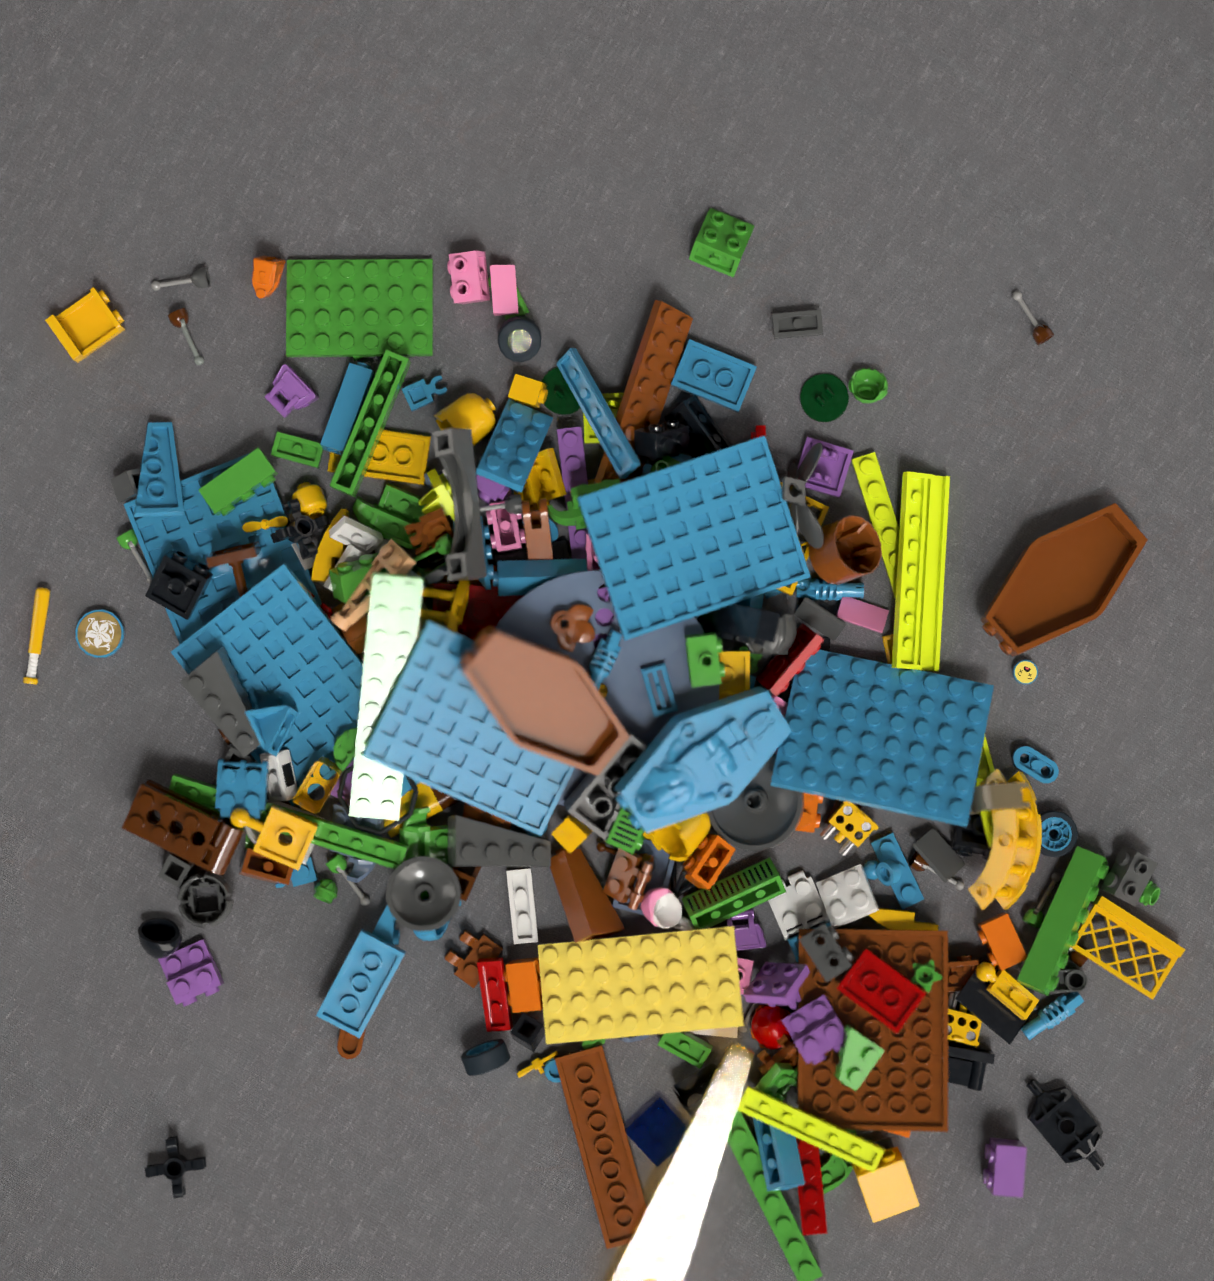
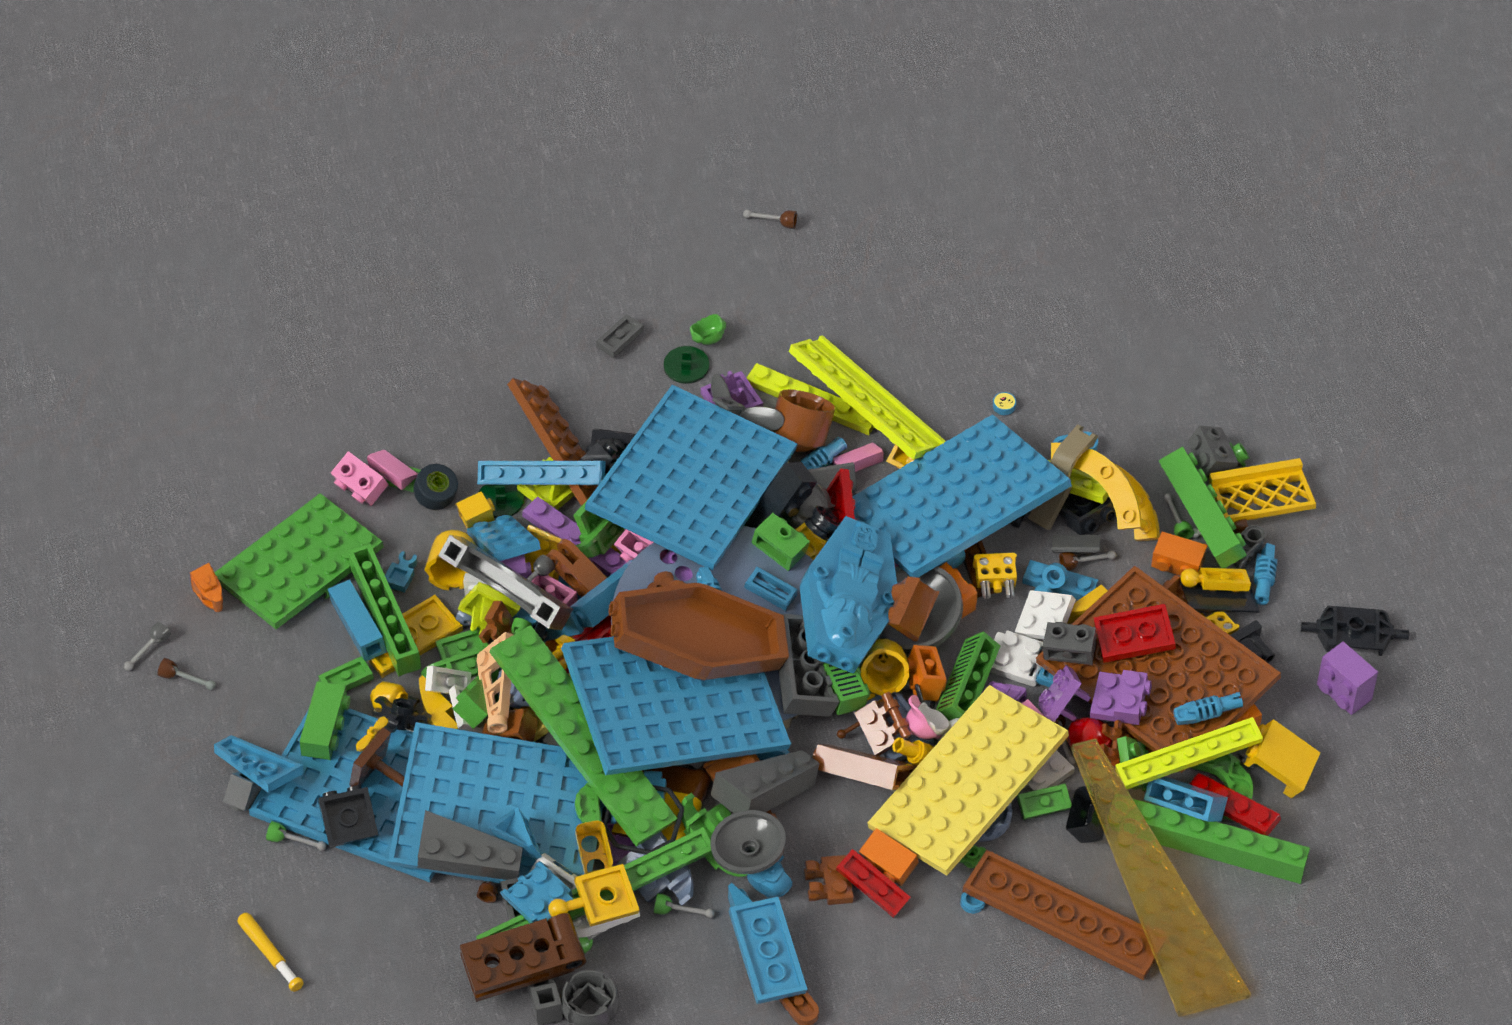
camera: 50 degrees left, 35 degrees down
(86, 325) = (100, 726): yellow panel -> none
(100, 633) = (318, 910): tile -> none
(264, 868) = (610, 944): dark orange slope -> none
(293, 389) = (302, 642): medium lavender piece -> none
(305, 874) = (639, 936): dark azure plate -> none
(326, 891) = (674, 928): bright green plate -> none
(485, 1057) = (912, 925): black wheel -> none
(522, 906) = (828, 816): white plate -> none
(528, 1032) = (924, 884): black brick -> none
(537, 1064) = (954, 908): yellow piece -> none
(571, 833) = (809, 728): yellow piece -> none
(632, 921) = (915, 751): none -> yellow arm
(657, 1131) = (1092, 874): clear blue plate -> none
(713, 375) = (596, 406): dark azure plate -> none
(721, 242) = (516, 333): bright green bracket -> none
(738, 812) = (911, 606): none -> dark orange slope
(756, 669) = (822, 523): none -> black wheel
(856, 1058) = (1166, 681): bright green wing -> none
(861, 1107) = (1206, 708): none -> dark azure hinge
(928, 968) = (1150, 595): bright green plate -> none
(1063, 580) = (965, 326): dark orange container -> none
(1064, 839) = (1141, 464): wheel -> none

